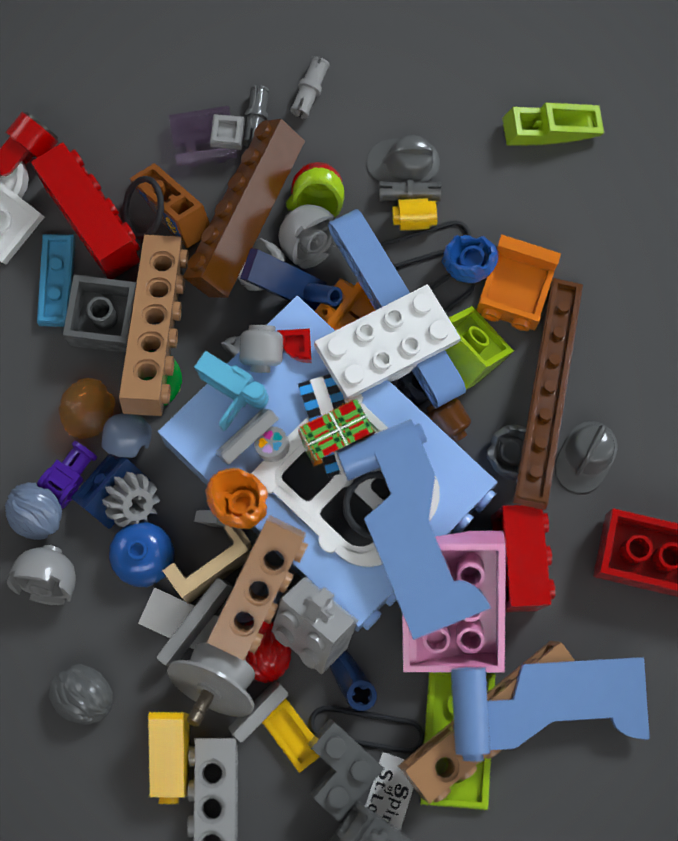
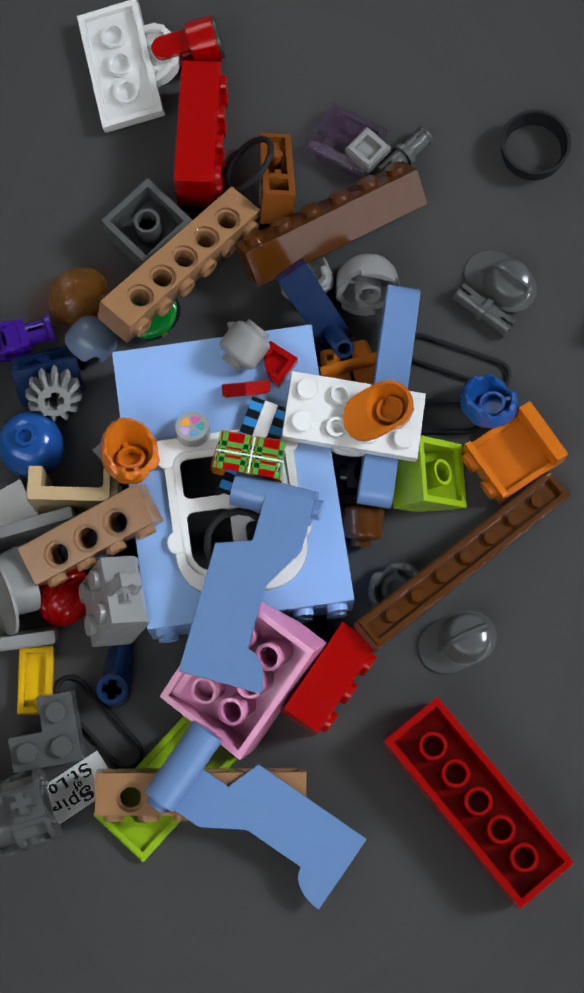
camera: 40 degrees right, 0 degrees up
(55, 279) = (143, 163): dark azure tile -> none
(233, 383) = (199, 356): medium azure piece -> none
(246, 435) = (176, 406): light grey tile -> none
(287, 382) = (245, 388): none -> red tile
(310, 87) = (469, 162): light grey pin -> none
(319, 186) = (407, 249): lime piece -> none
(356, 15) = (543, 119): none -> black tyre
(407, 322) = (378, 410): none -> orange cap
(415, 214) = (472, 331): yellow brick -> none

